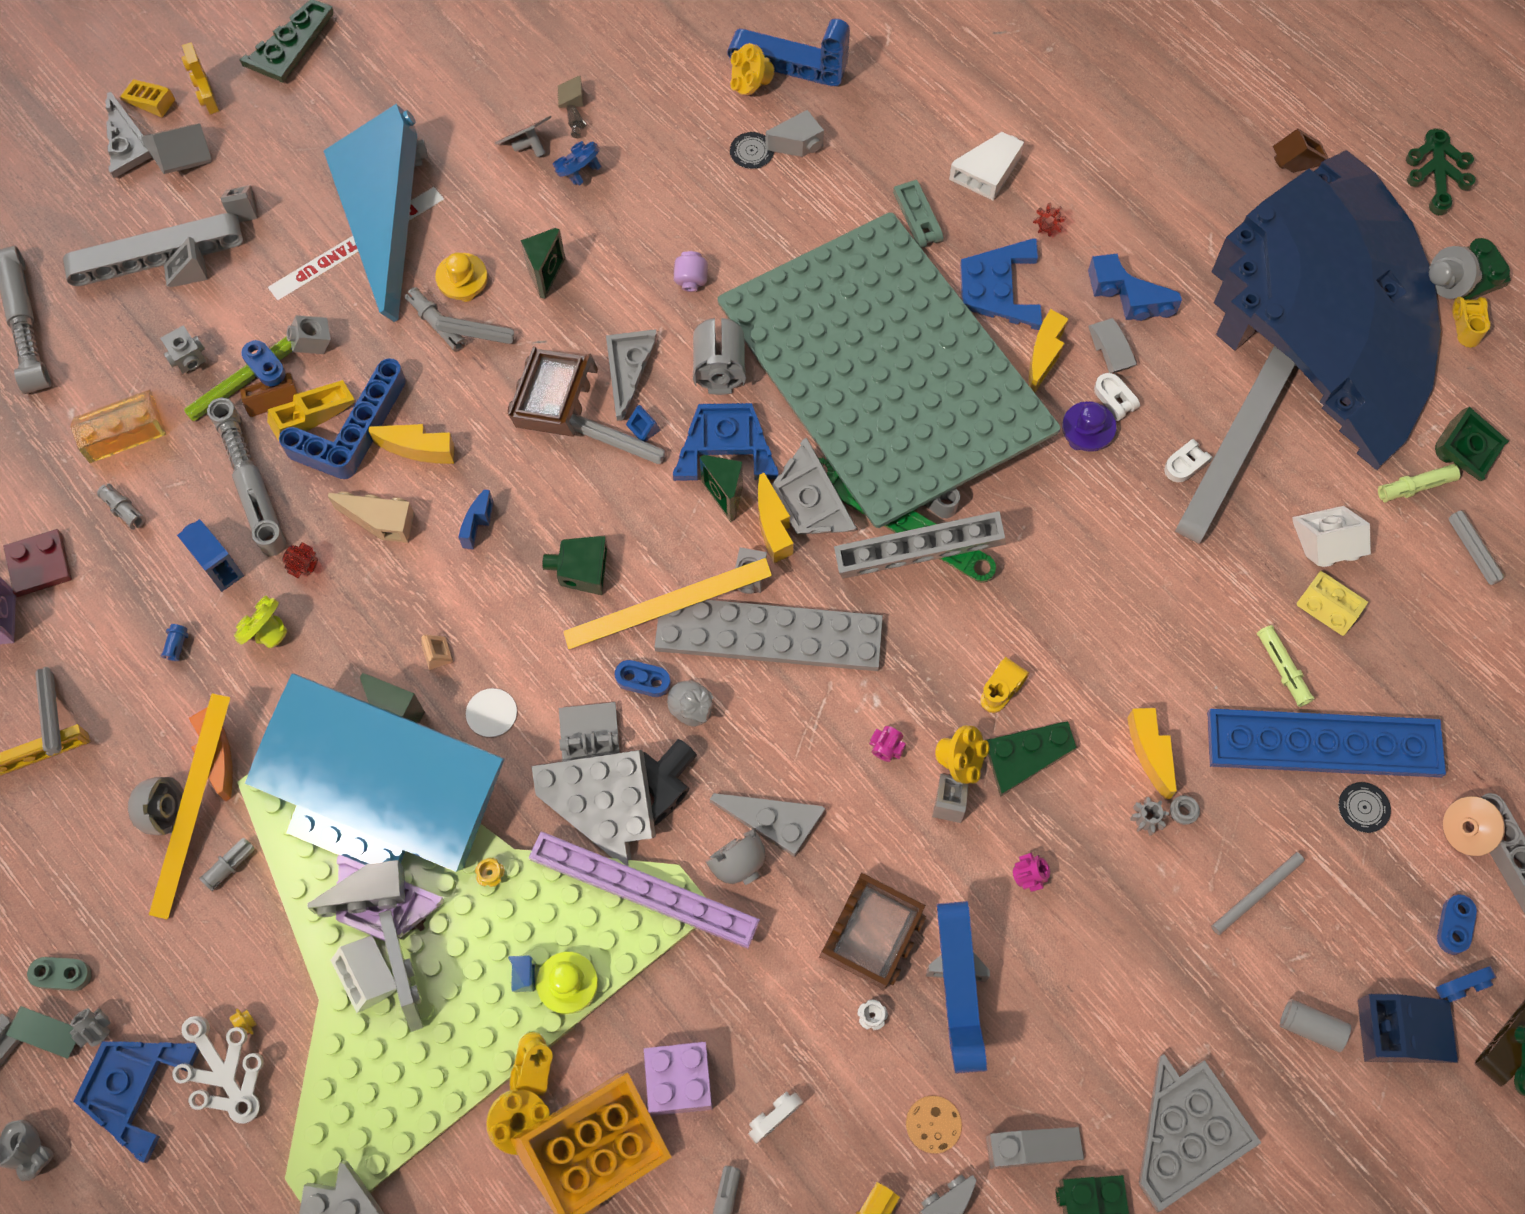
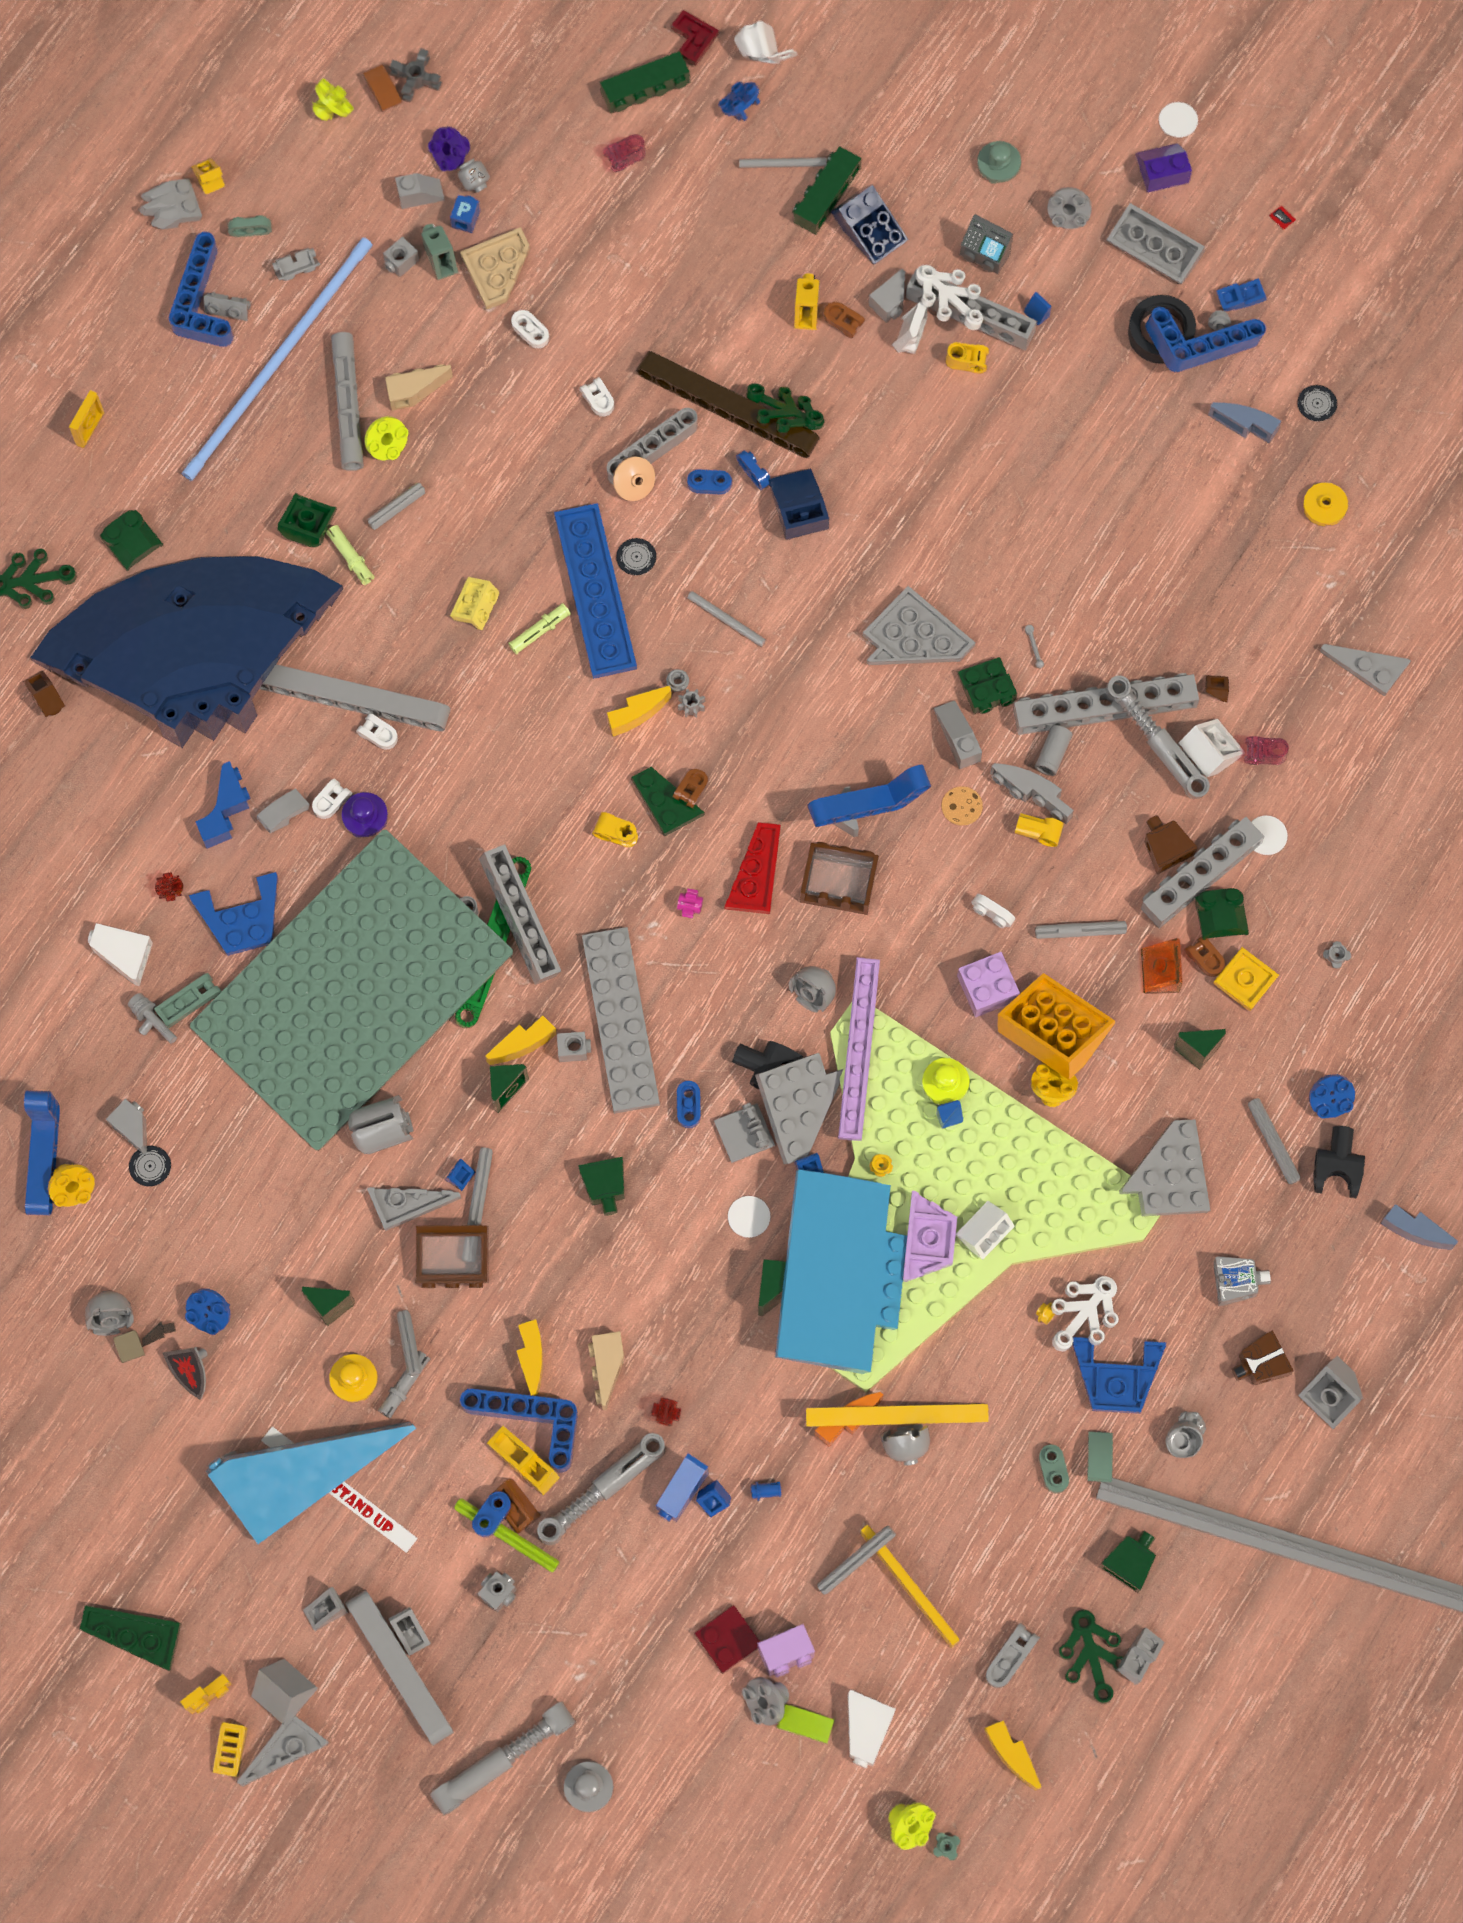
camera: 105 degrees left, 5 degrees up
(89, 1027) = (1086, 1422): light grey gear -> none
(117, 426) = (581, 1624): clear yellow slope -> none
(121, 506) = (658, 1587): light grey pin -> none
(189, 586) = (713, 1498): none -> blue slope
(227, 864) = (932, 1373): light grey axle -> none
(262, 625) = (731, 1421): neon yellow plate -> none
(309, 334) = (452, 1484): light grey brick -> none
(370, 886) = (922, 1240): slope -> none
(402, 971) = (976, 1196): light grey wing -> none
(436, 651) = (712, 1276): light nougat slope -> none
(478, 514) = (579, 1280): blue slope -> none
(524, 794) = (810, 1163): none -> blue slope
(531, 1064) = (1012, 1088): yellow piece -> none
(609, 77) = (108, 1313): none -> light grey cylinder
(667, 603) = (621, 1102): yellow sticker -> none
(690, 271) = (299, 1177): lavender head -> none
(690, 703) = (698, 1060): light grey hair -> none
(724, 431) = (449, 1105): blue wing -> none
(778, 821) = (774, 968): light grey wing -> none
(811, 495) = (493, 1015): light grey wing -> none
(880, 1015) = (903, 860): white plate -> none
(899, 831) = (755, 880): none -> red wing
(918, 170) = (144, 1009): none -> light grey piece
(950, 799) = (717, 847): light grey slope -> none
(963, 754) = (683, 846): yellow plate -> none
(1031, 872) = (760, 776): dark pink gear -> none
(1043, 792) = (695, 781): none -> dark orange plate
(1046, 348) = (302, 863): yellow slope -> none
(1315, 1025) = (814, 564): light grey pin -> none
(1333, 535) = (416, 611): white slope -> none
(1455, 272) = (145, 552): light grey plate -> none
(1471, 320) = (181, 533): yellow piece -> none

